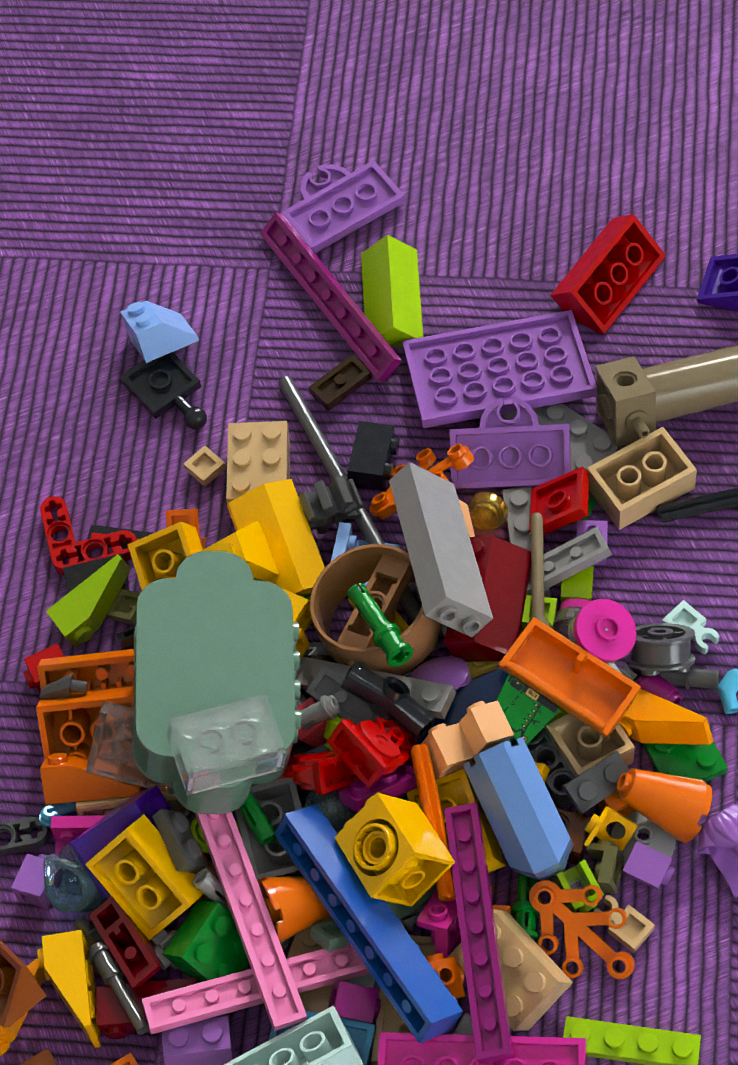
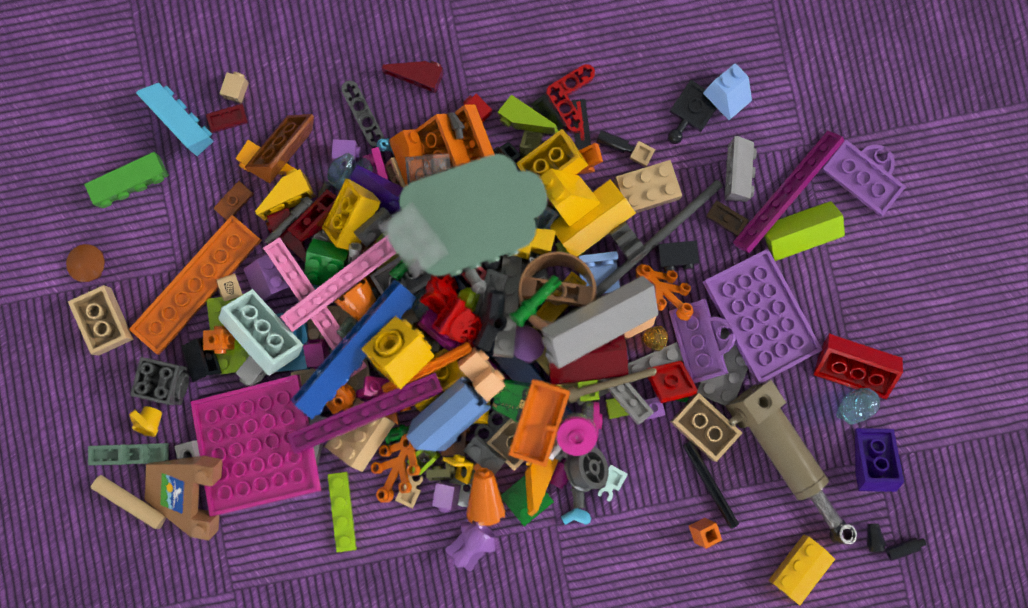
camera: 65 degrees right, 25 degrees up
(172, 498) = (614, 142): none -> black cylinder
(275, 348) = (740, 170): none -> light grey slope
(667, 282) = (858, 405): none -> clear light blue helmet

